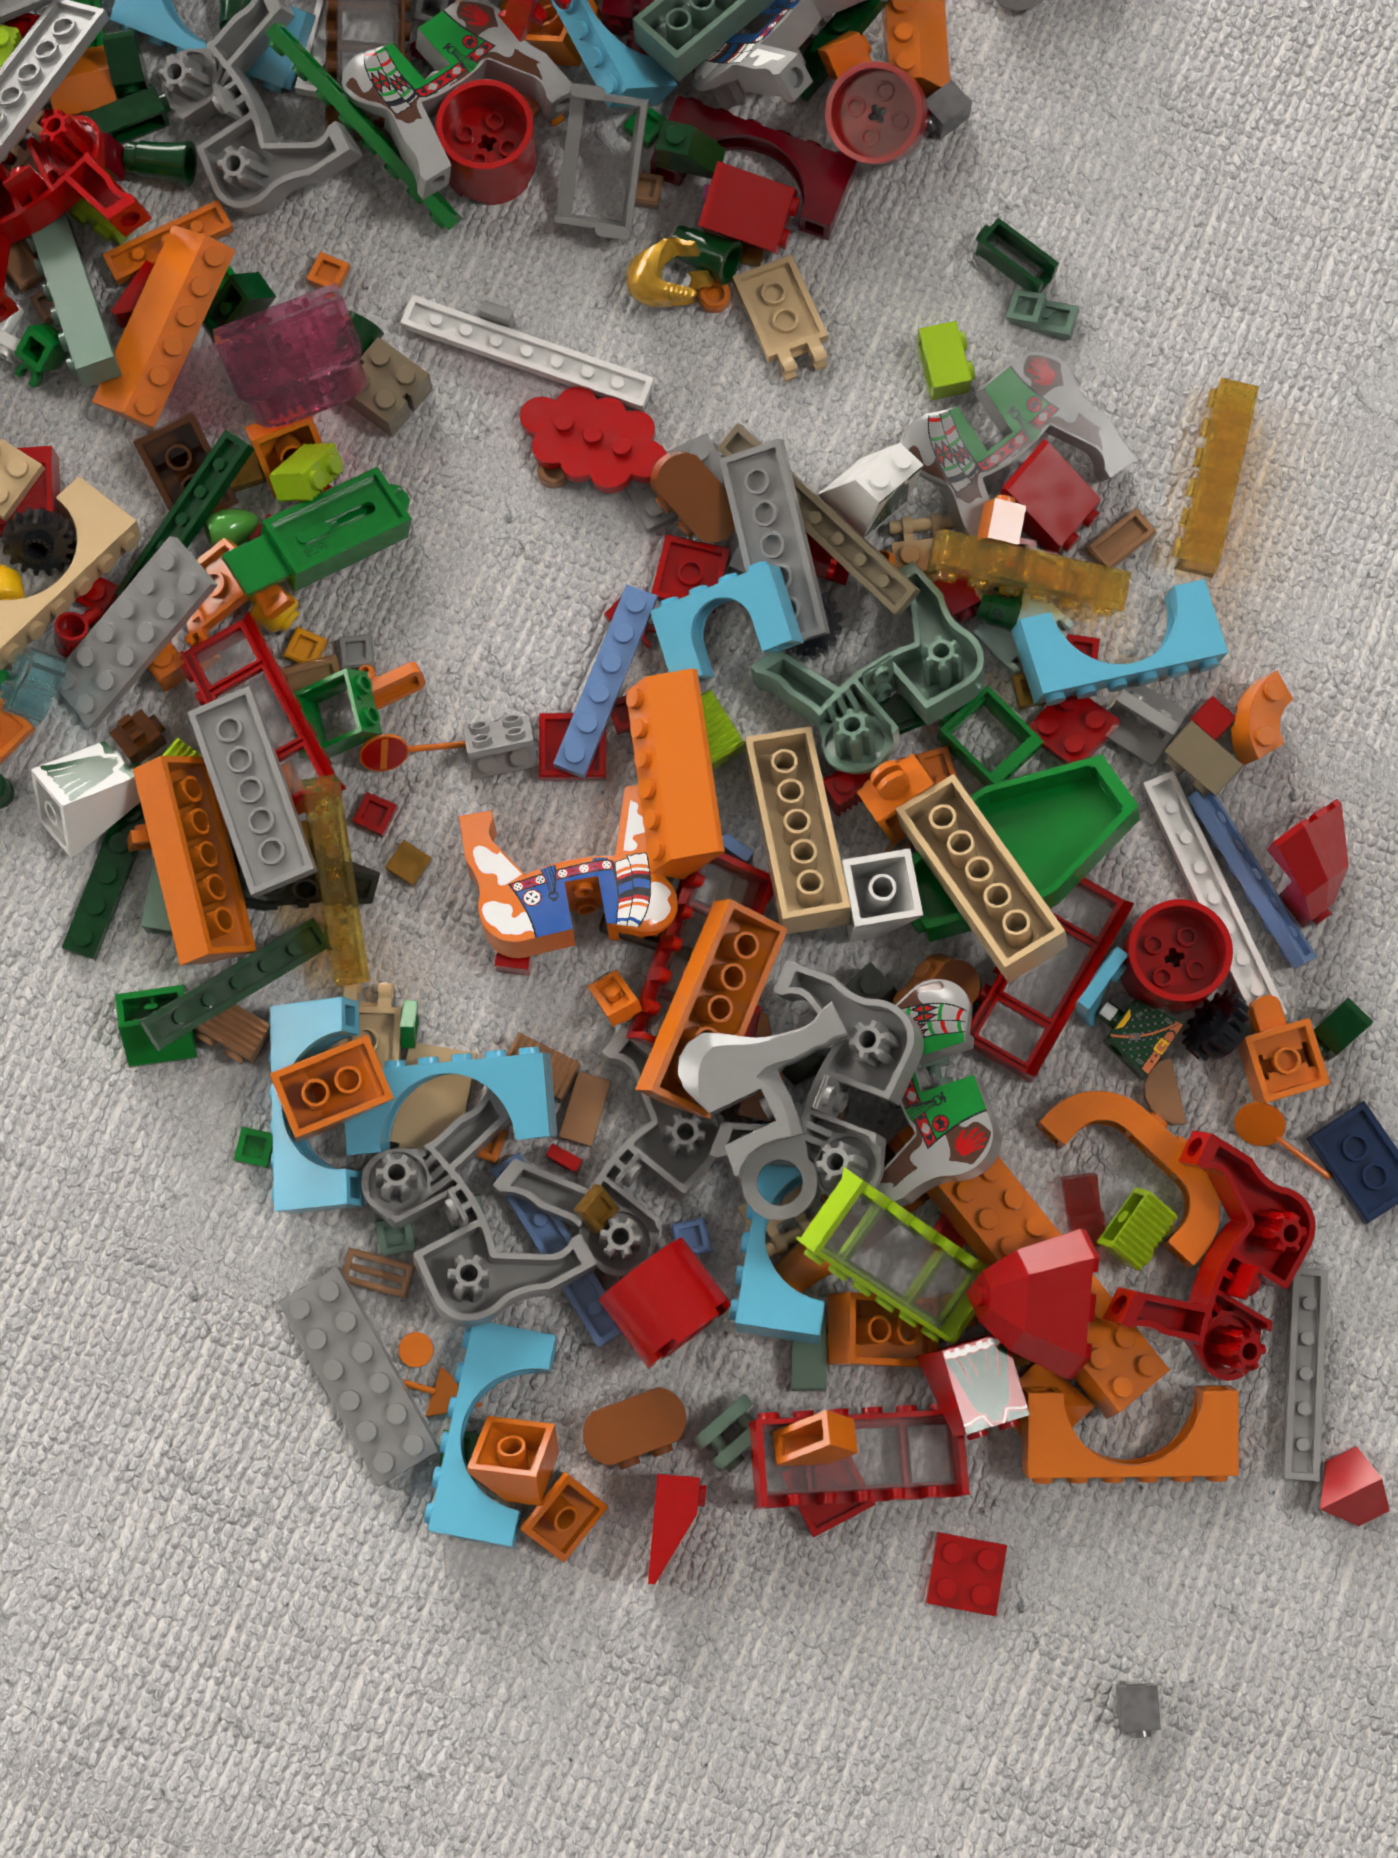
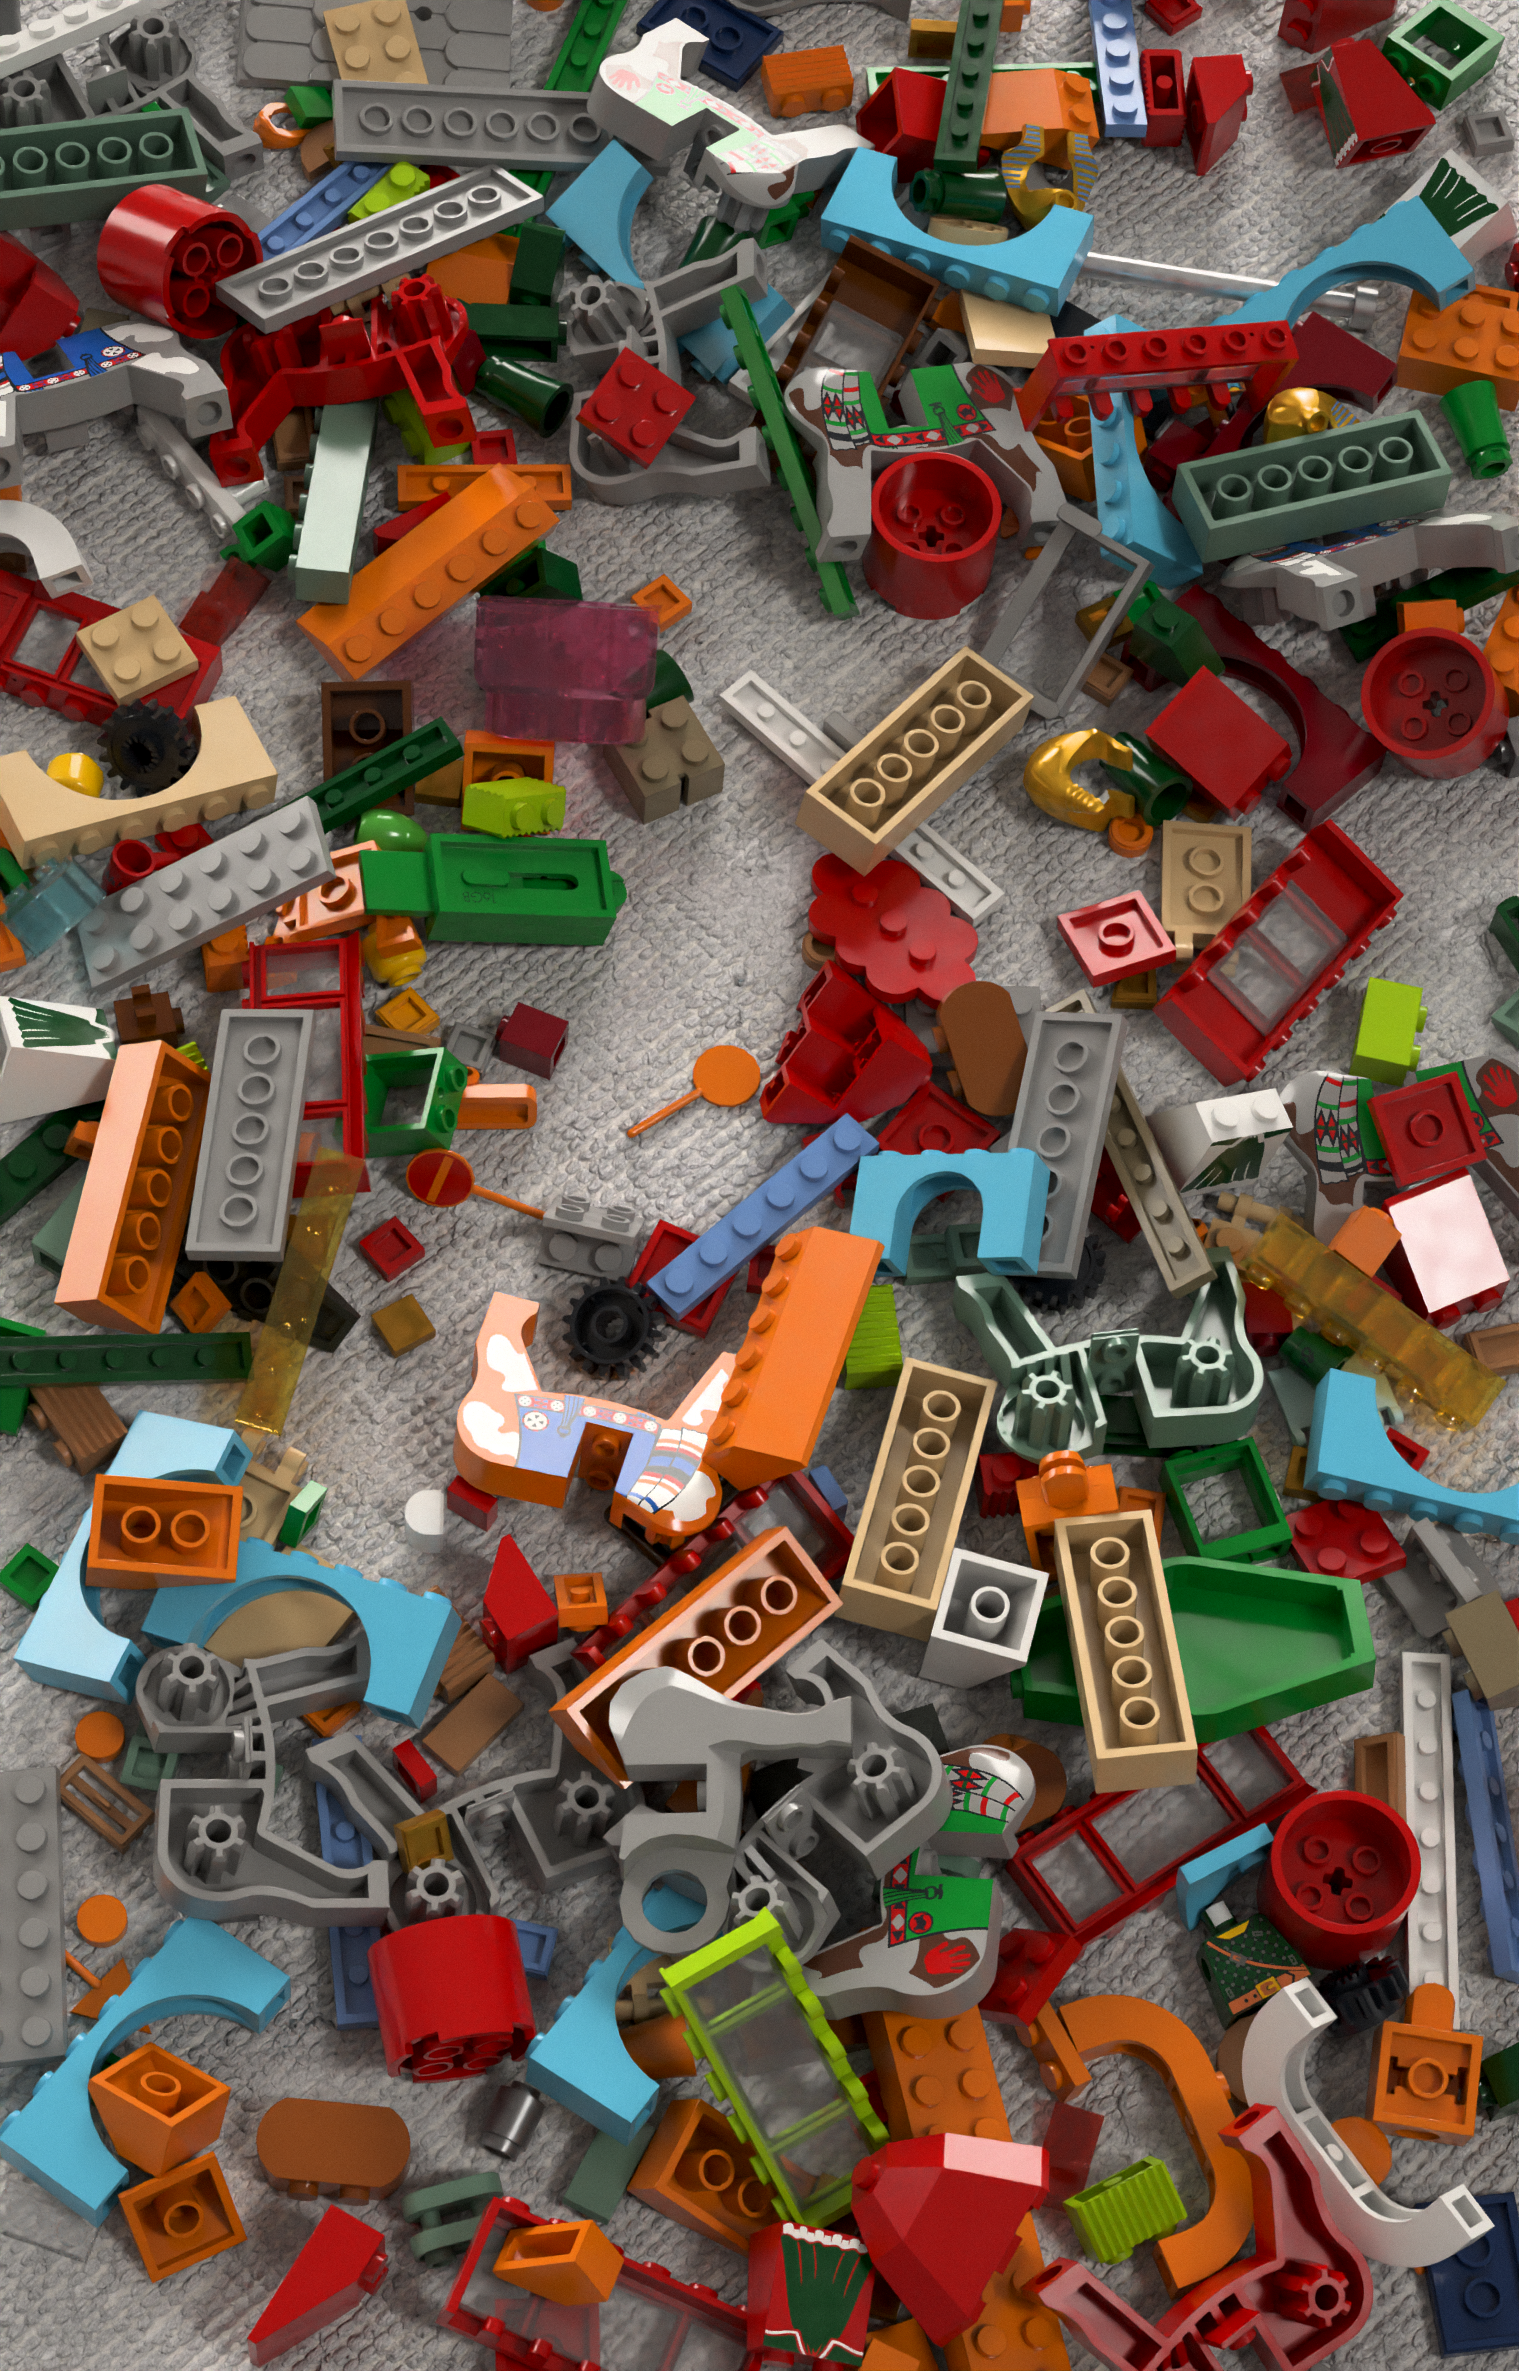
camera: 20 degrees right, 15 degrees down
(37, 409) = (227, 604): none -> clear red slope
(161, 210) = (494, 448): none -> red tile
(247, 143) = (635, 408): none -> red plate
(271, 913) = (200, 1304): none -> orange tile
(353, 1231) = (100, 1736): none -> orange tile
(395, 627) = (532, 1040): none -> dark red brick
(489, 990) = (425, 1521): none -> white brick
(530, 592) = (721, 1077): none -> orange piece
(531, 812) = (631, 1345): none -> black gear
(553, 313) = (914, 760): none -> tan brick
(578, 1026) = (516, 1610): none -> red slope
(603, 543) = (844, 1056): none -> red brick
(620, 149) = (1091, 618): none -> pearl gold tile
(733, 648) = (944, 1255): none -> sand green slope
(735, 1355) = (511, 2120): none -> flat silver brick
(741, 376) = (1116, 938): none -> plate
(769, 404) = (1136, 992): none -> pearl gold tile
(852, 339) = (1278, 954): none -> red window
(1009, 425) = (1426, 1129): none -> red plate
(1014, 1108) = (1027, 1974): none -> red plate
(1035, 1140) = (1056, 2055): none -> orange plate
(1166, 872) = (1382, 1769): none -> medium nougat tile
(1279, 1160) = (1374, 2223): none -> white arch

